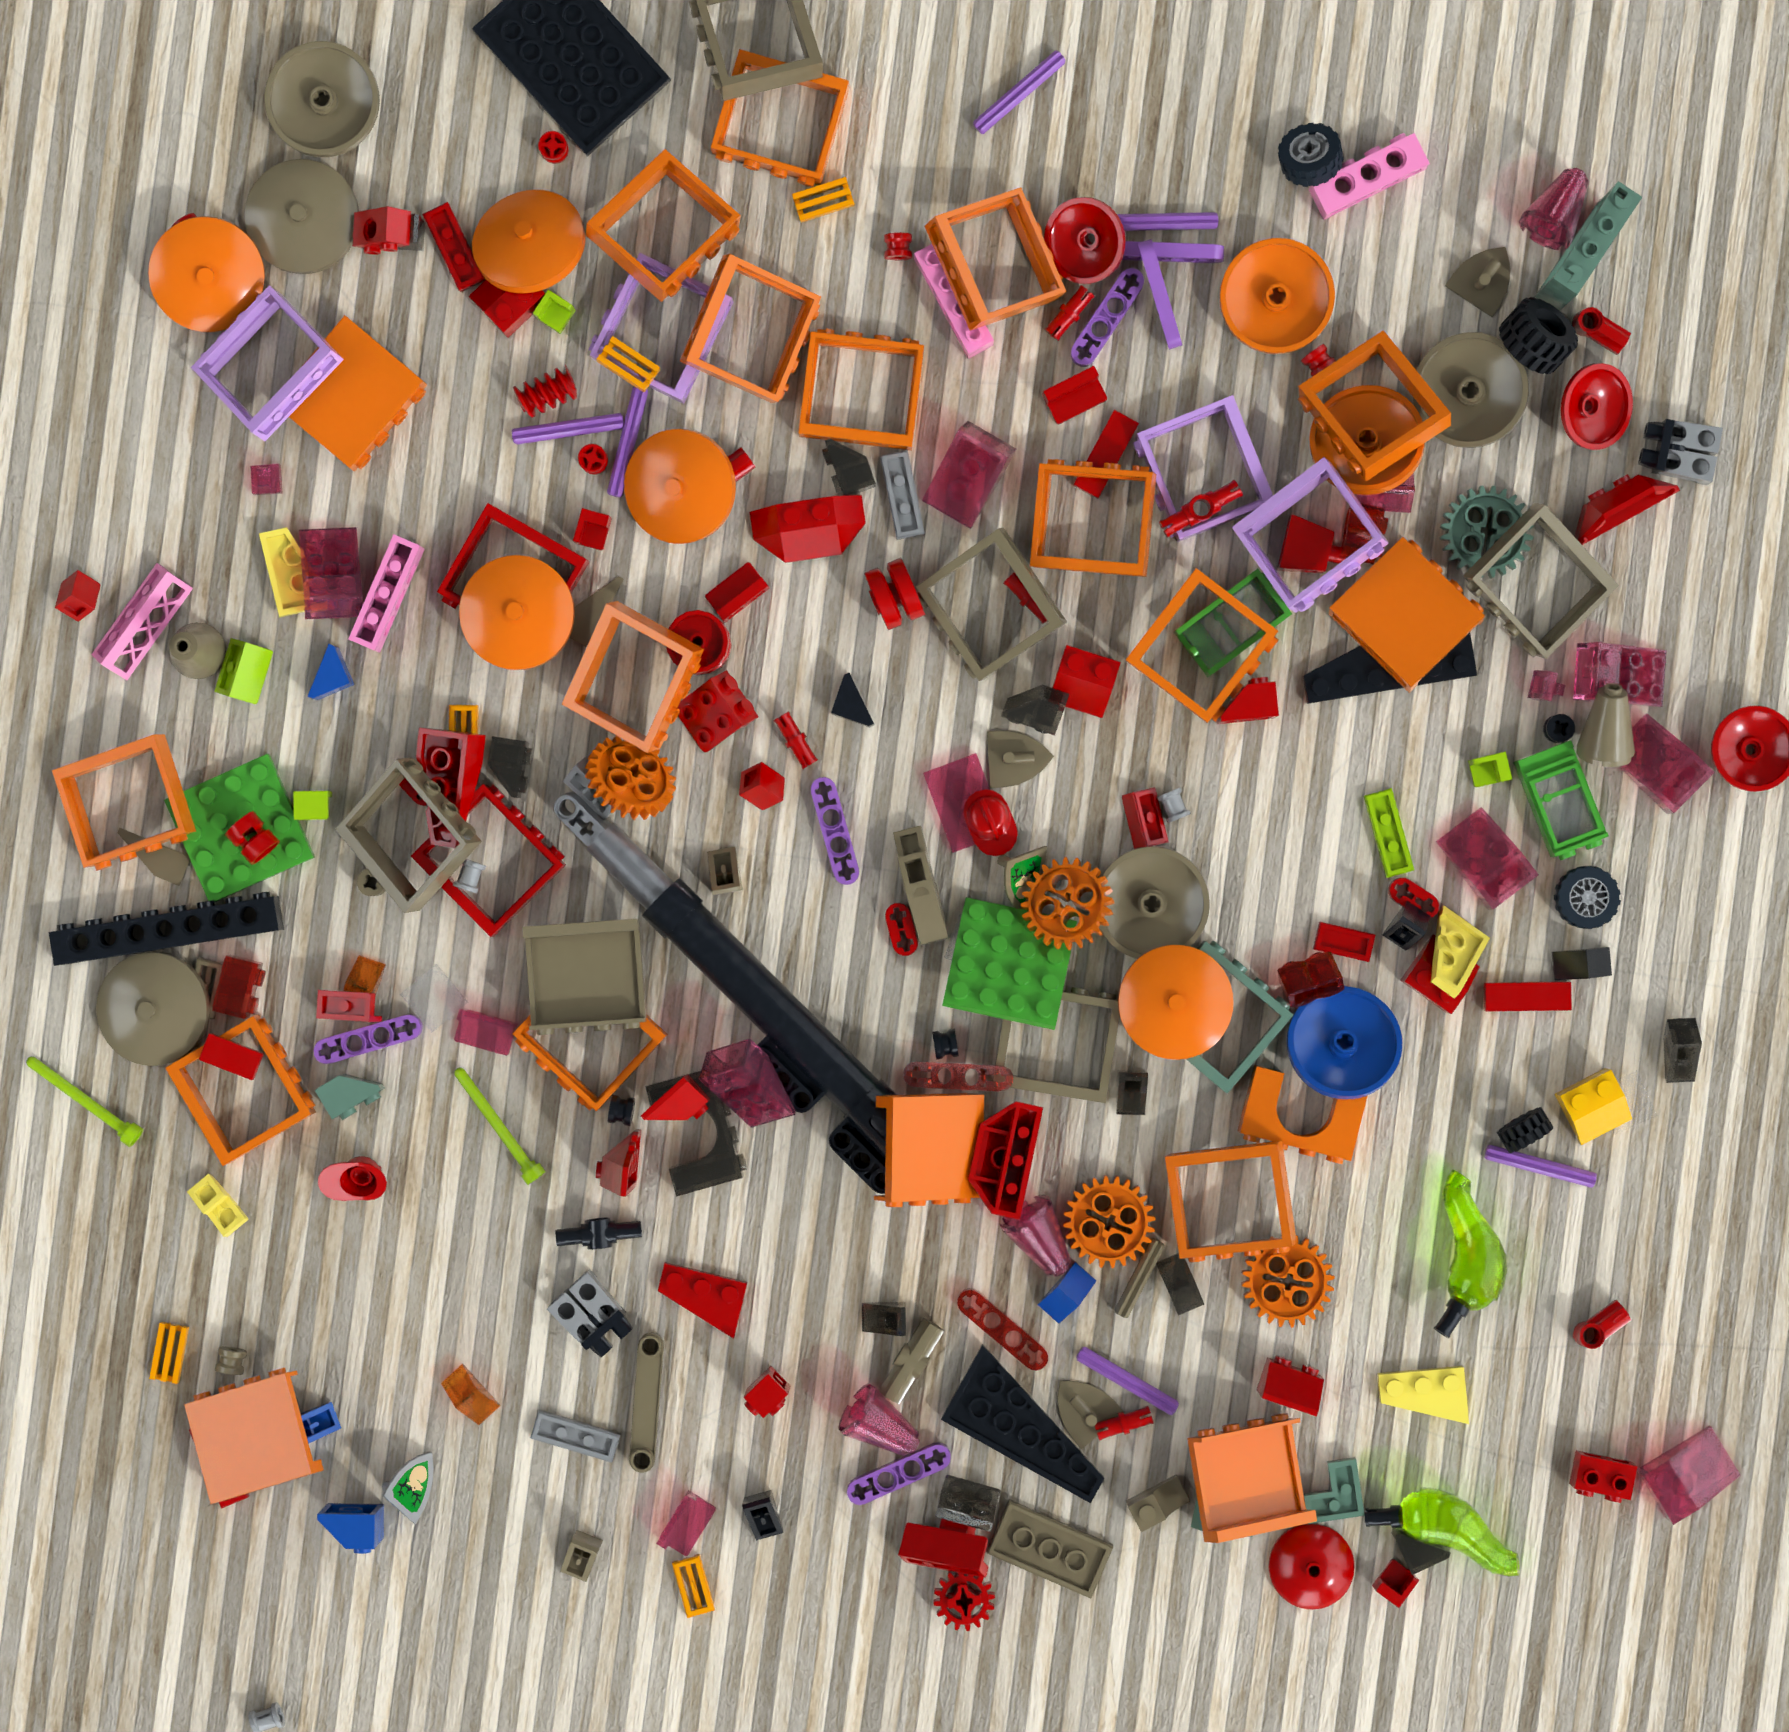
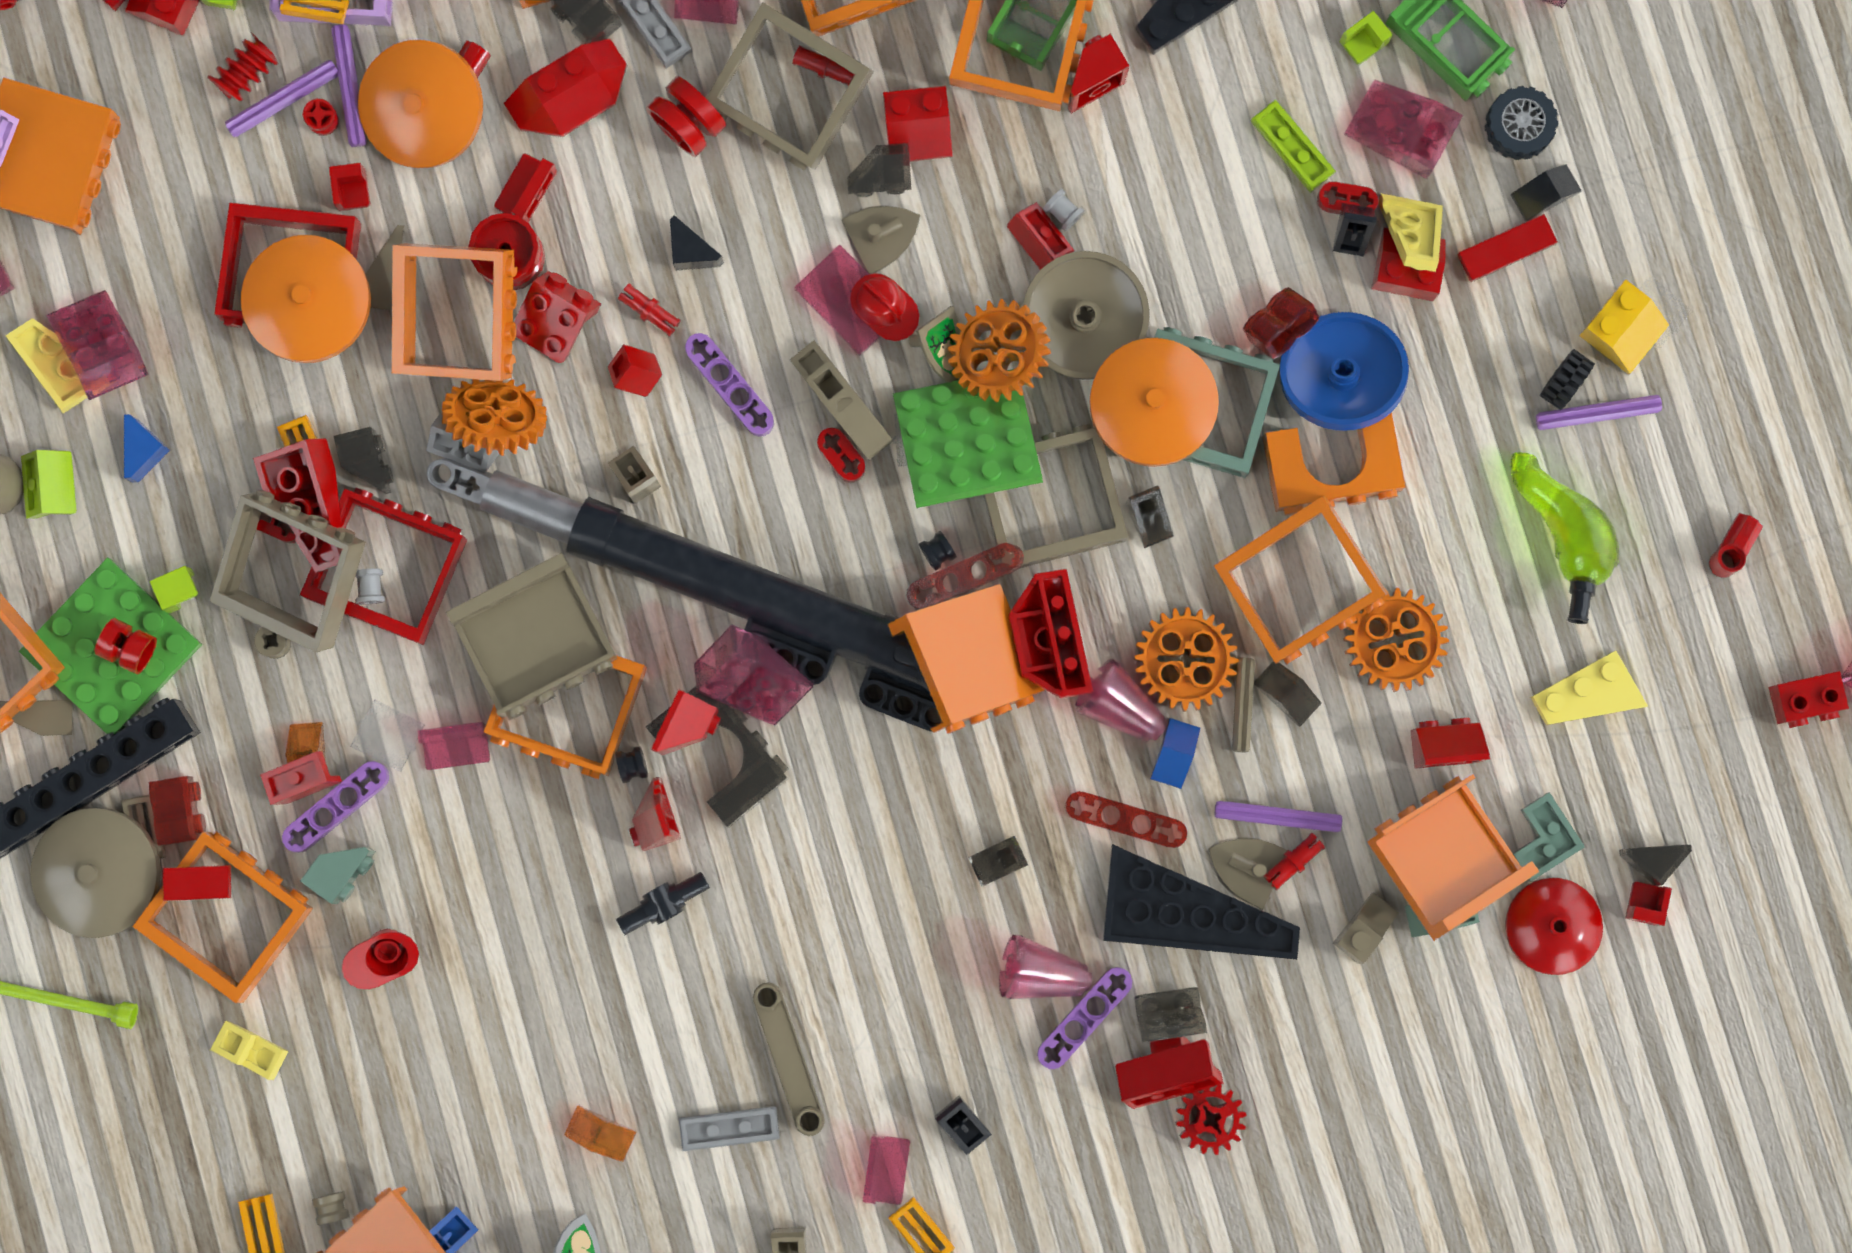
camera: 20 degrees left, 5 degrees down
(386, 593) = (163, 339): bright pink brick -> none
(530, 1170) = (562, 868): lime piece -> none
(598, 1318) = (701, 988): light grey hips -> none
(705, 1295) = (802, 919): red wing -> none
(767, 1393) = (910, 992): red brick -> none
(911, 1360) = (1046, 893): dark tan piece -> none
(1049, 1549) = (1276, 1028): dark tan tile -> none
(1344, 941) = (1297, 273): red tile -> none
(1449, 1522) = (1675, 813): clear neon green animal -> none
(1681, 1050) = (1686, 233): clear smoke slope -> none

